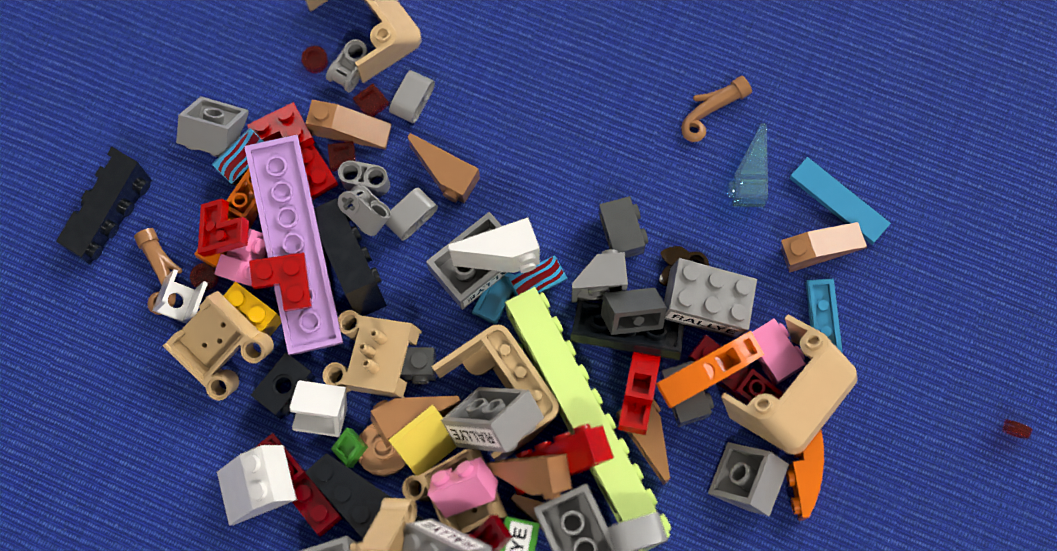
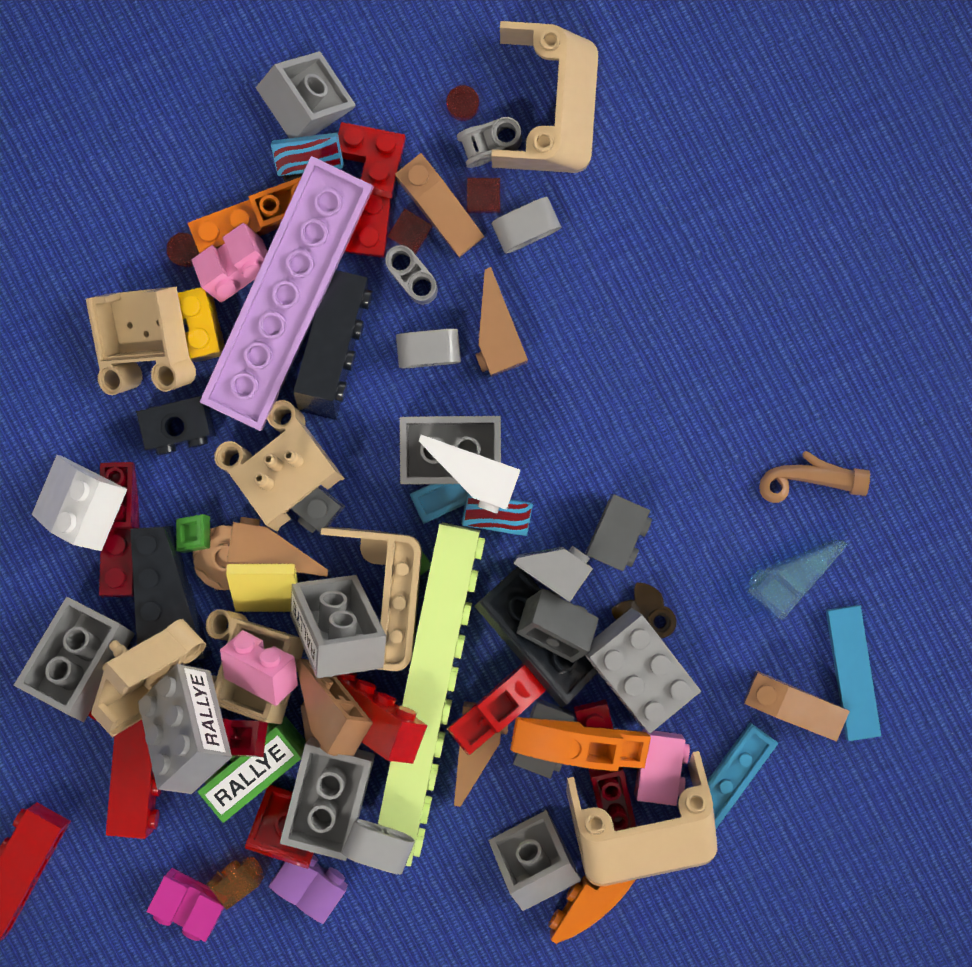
camera: 35 degrees right, 15 degrees up
(104, 206) = (136, 101): black wedge -> none
(158, 259) = (150, 205): medium nougat plant -> none
(191, 299) = (144, 273): white piece -> none
(218, 233) = (219, 226): red plate -> none
(289, 274) = (257, 324): red plate -> none
(319, 408) = (190, 475): white piece -> none
(367, 209) = (385, 315): light grey piece -> none

